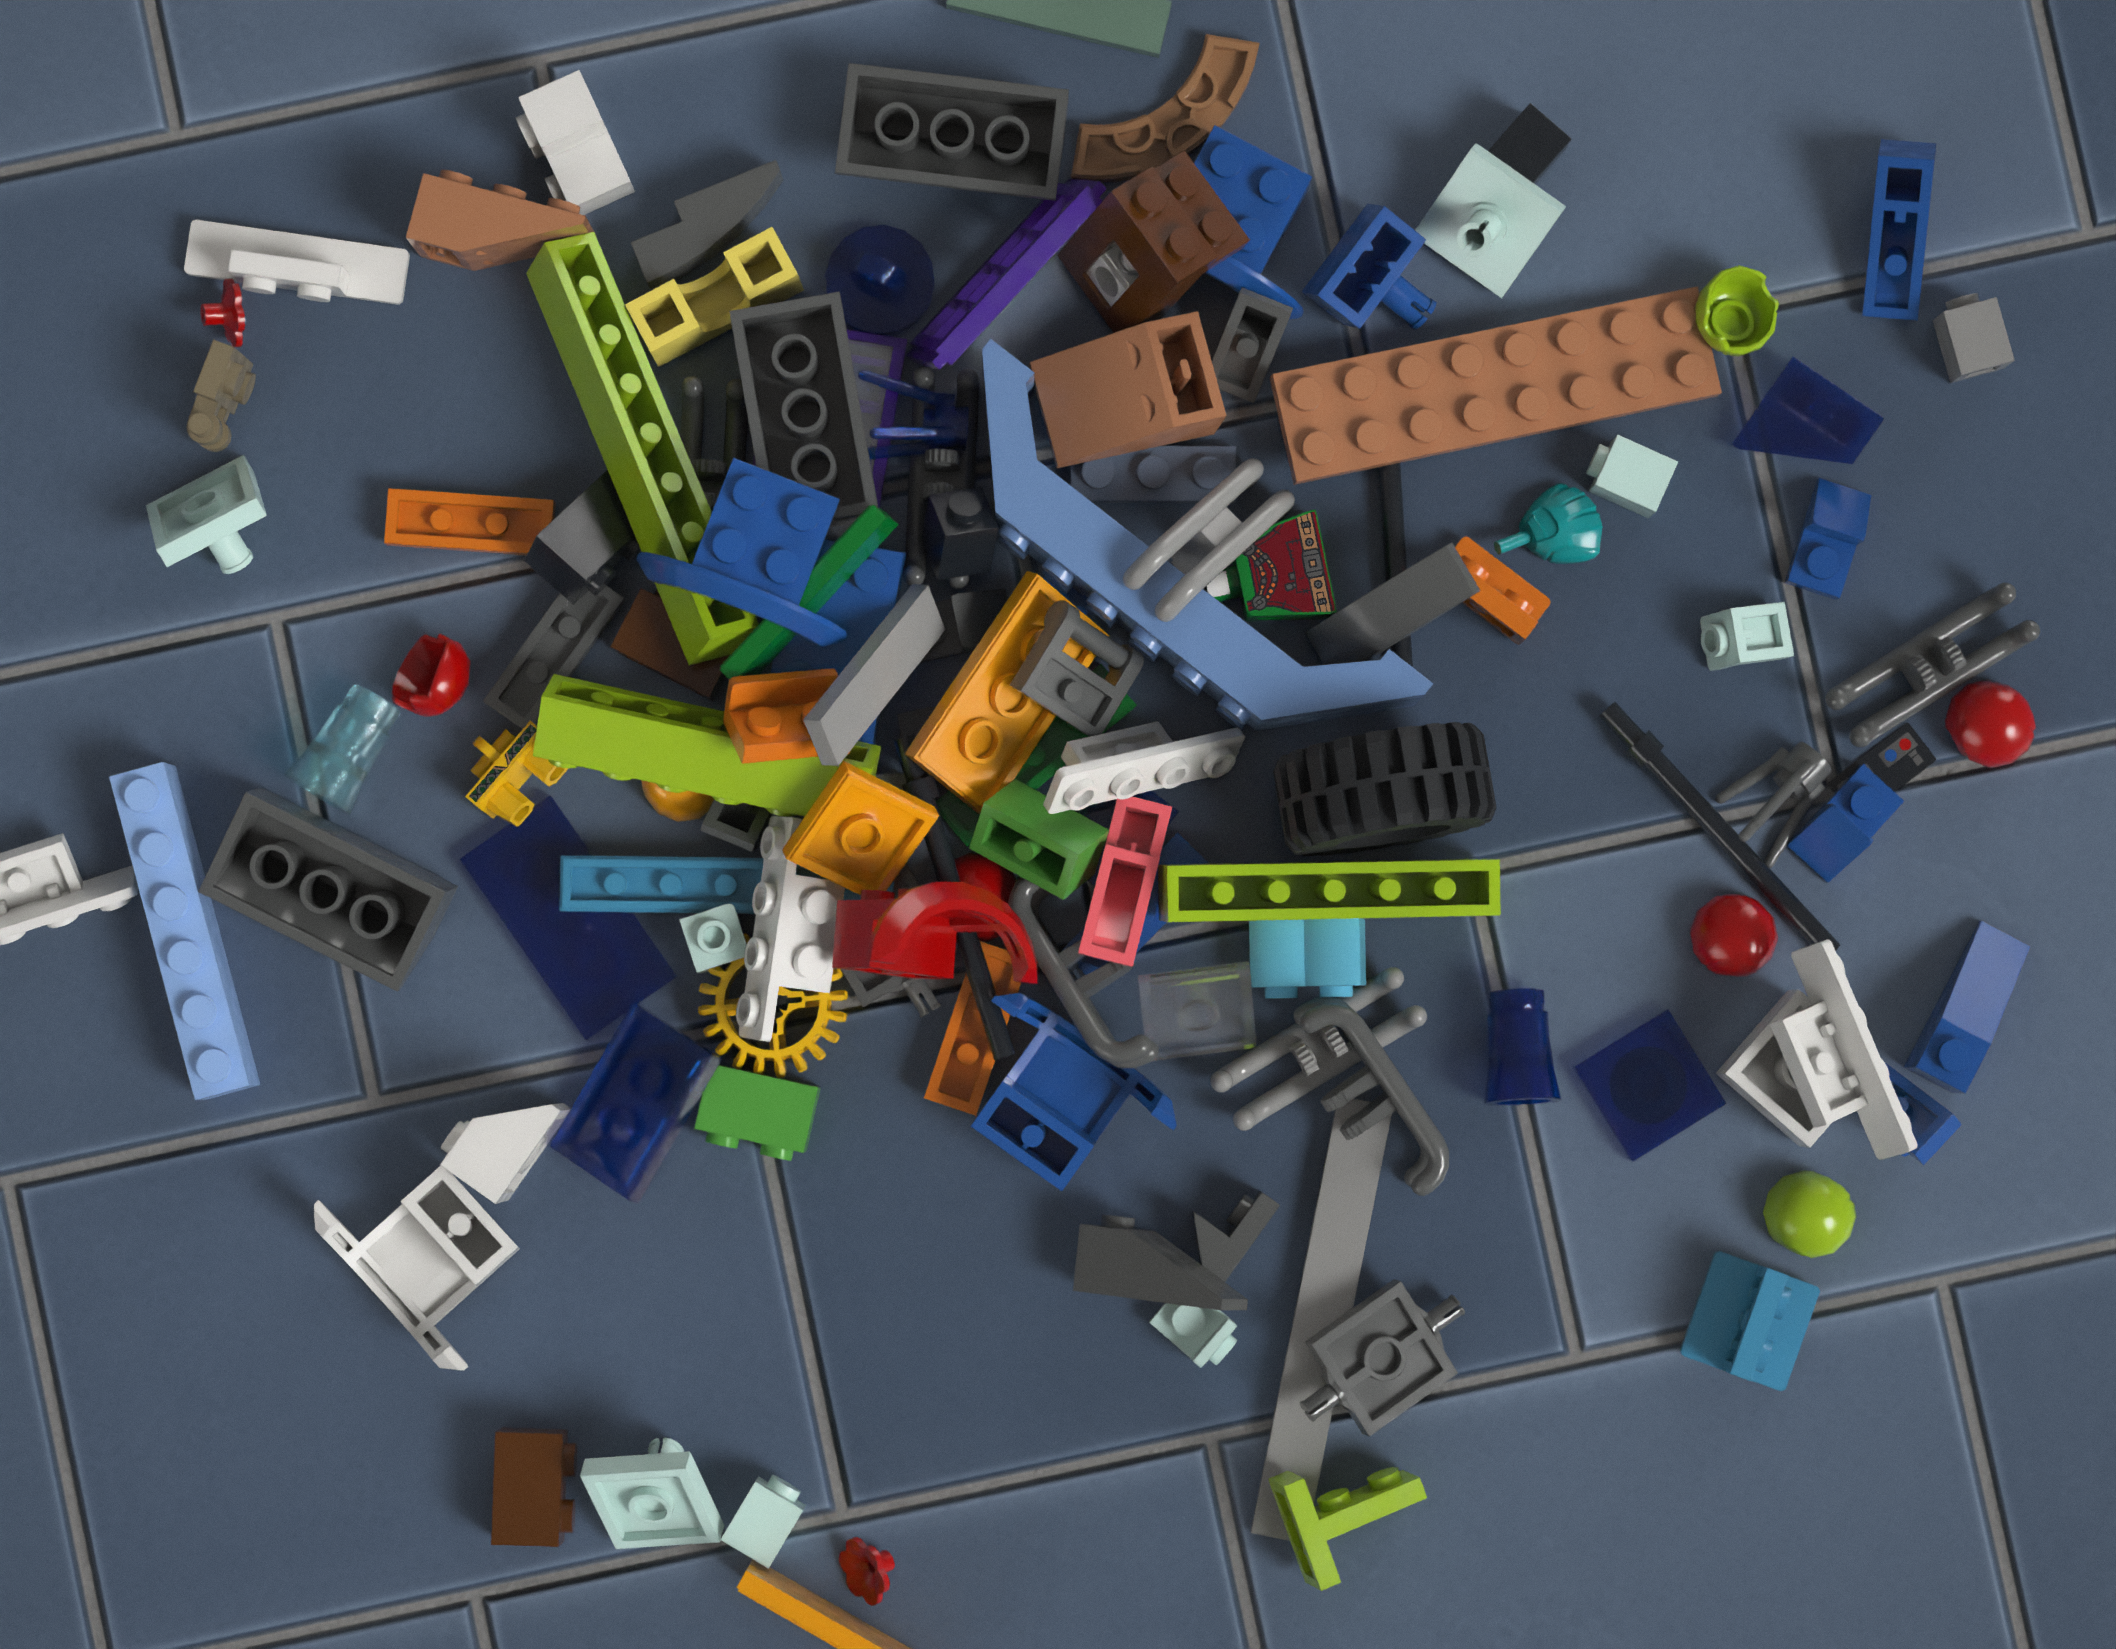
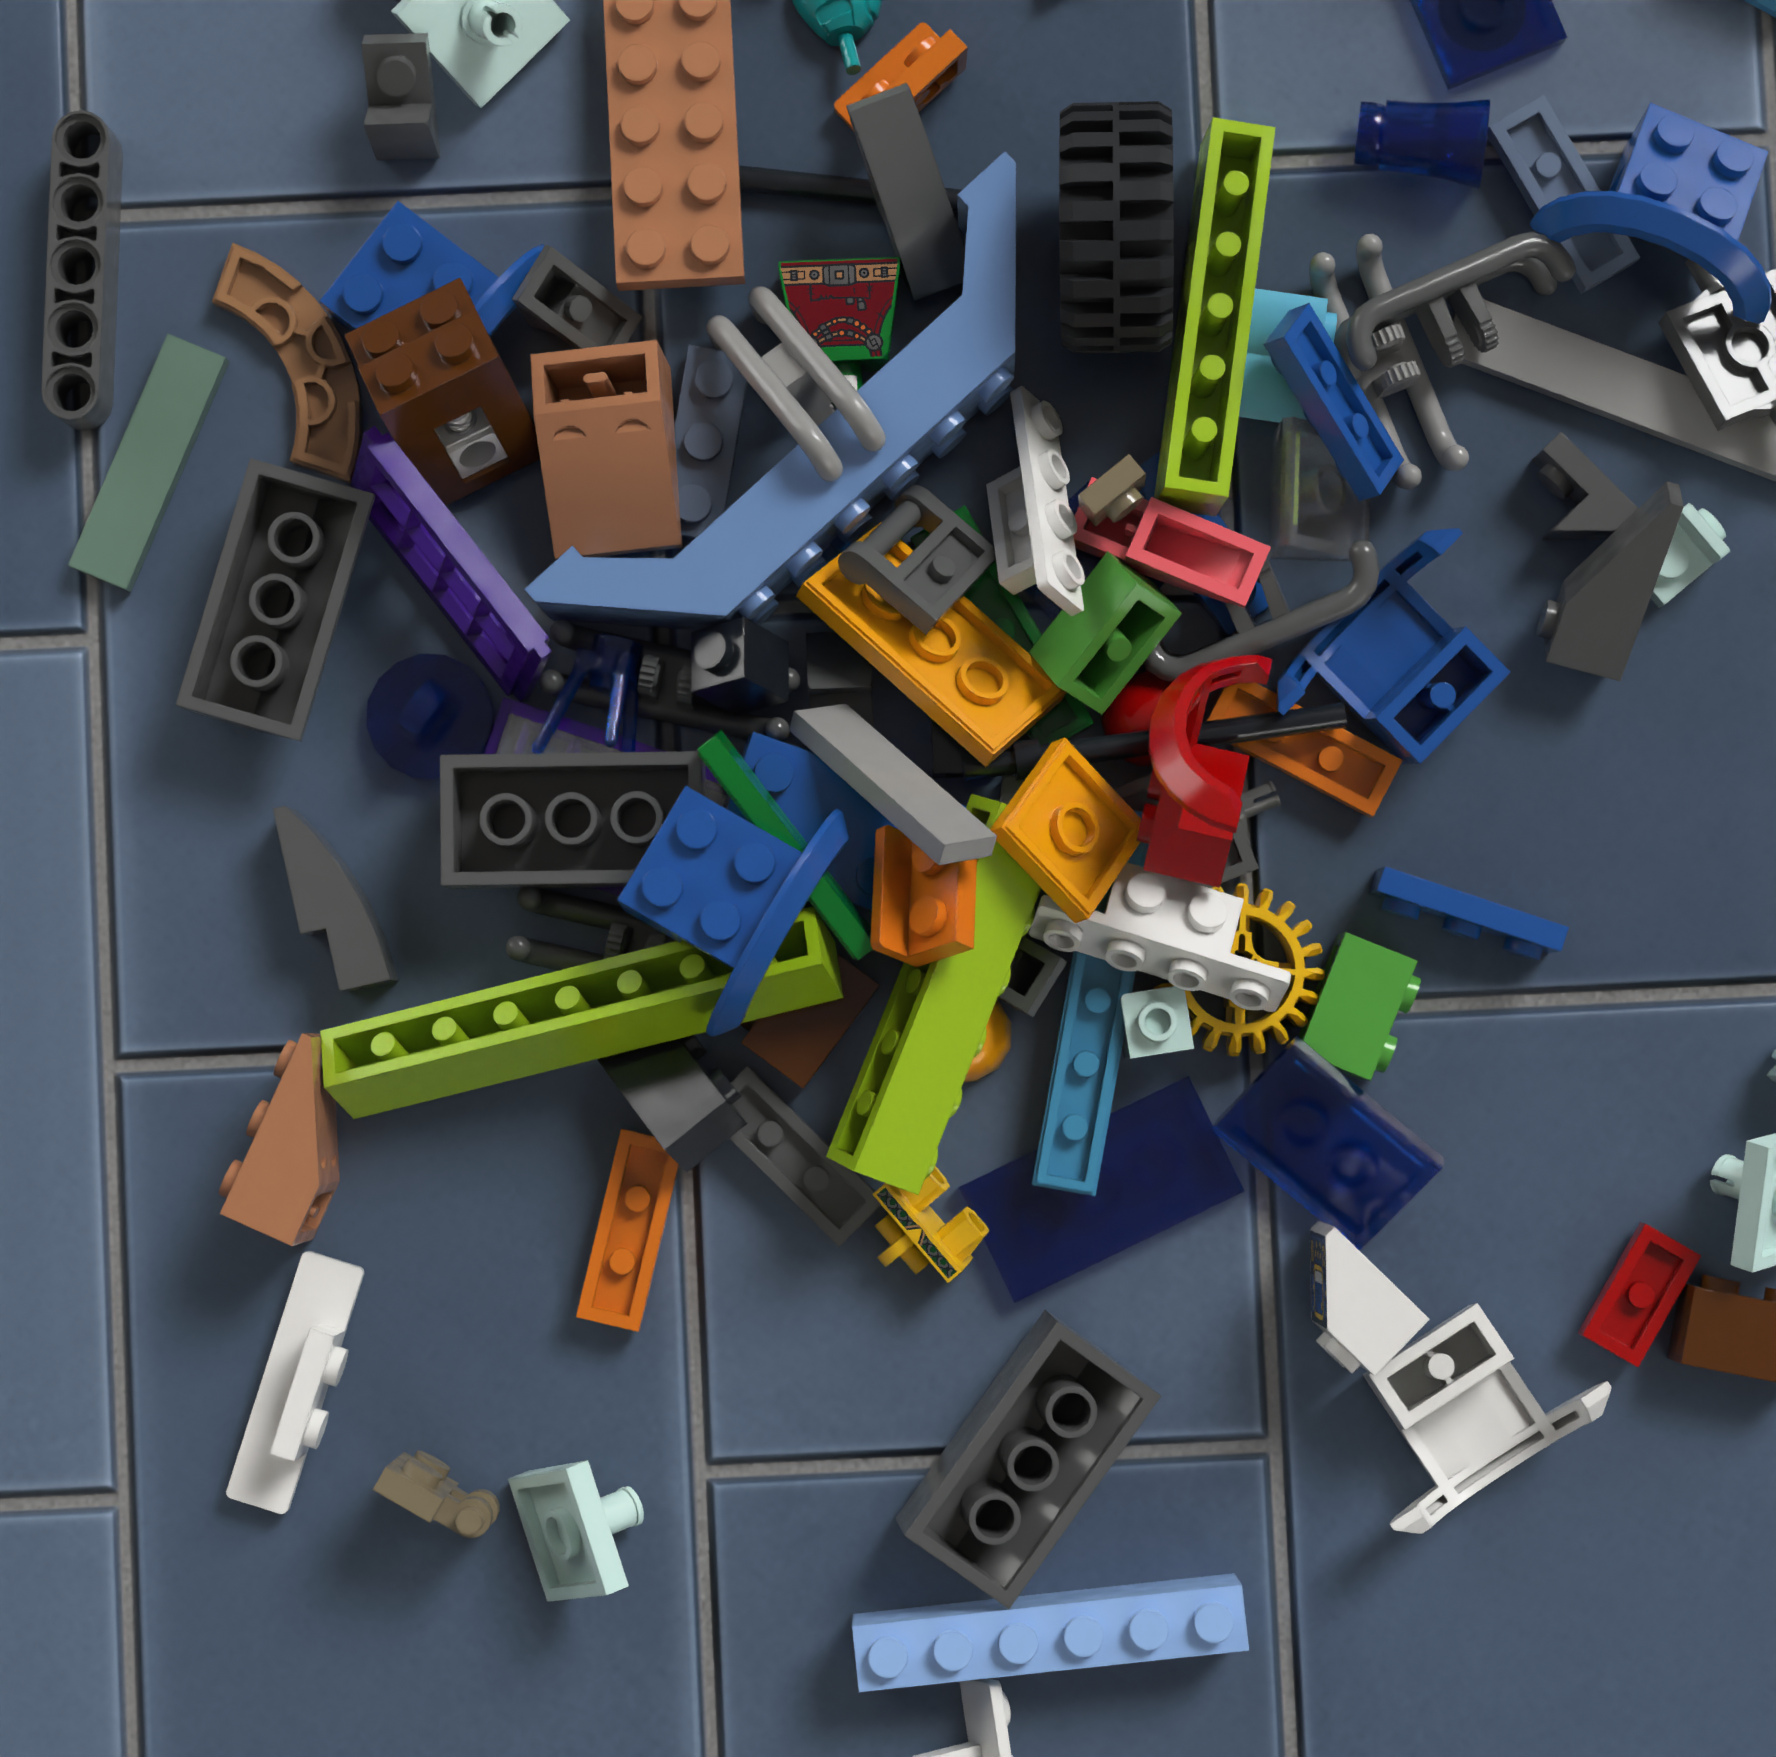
camera: 75 degrees left, 0 degrees up
(227, 313) = (341, 1470): red plant -> none
(345, 749) = (868, 1413): clear light blue plant -> none
(432, 676) = (801, 1301): red hair -> none
(550, 1392) = (1639, 1294): none -> red plate
(571, 134) = (202, 1038): white brick -> none
(689, 314) = (432, 933): light yellow arch -> none
(852, 1192) = (1467, 914): none -> blue plate
(1156, 825) = (1114, 492): none -> dark tan plate
(1269, 1002) = (1333, 402): none -> blue plate
(1368, 270) = (515, 160): blue brick -> none
(1406, 163) = (400, 97): none -> dark grey slope
(1493, 1178) = (1549, 167): none -> sand blue plate
(1496, 1274) = (1680, 191): none -> blue piece

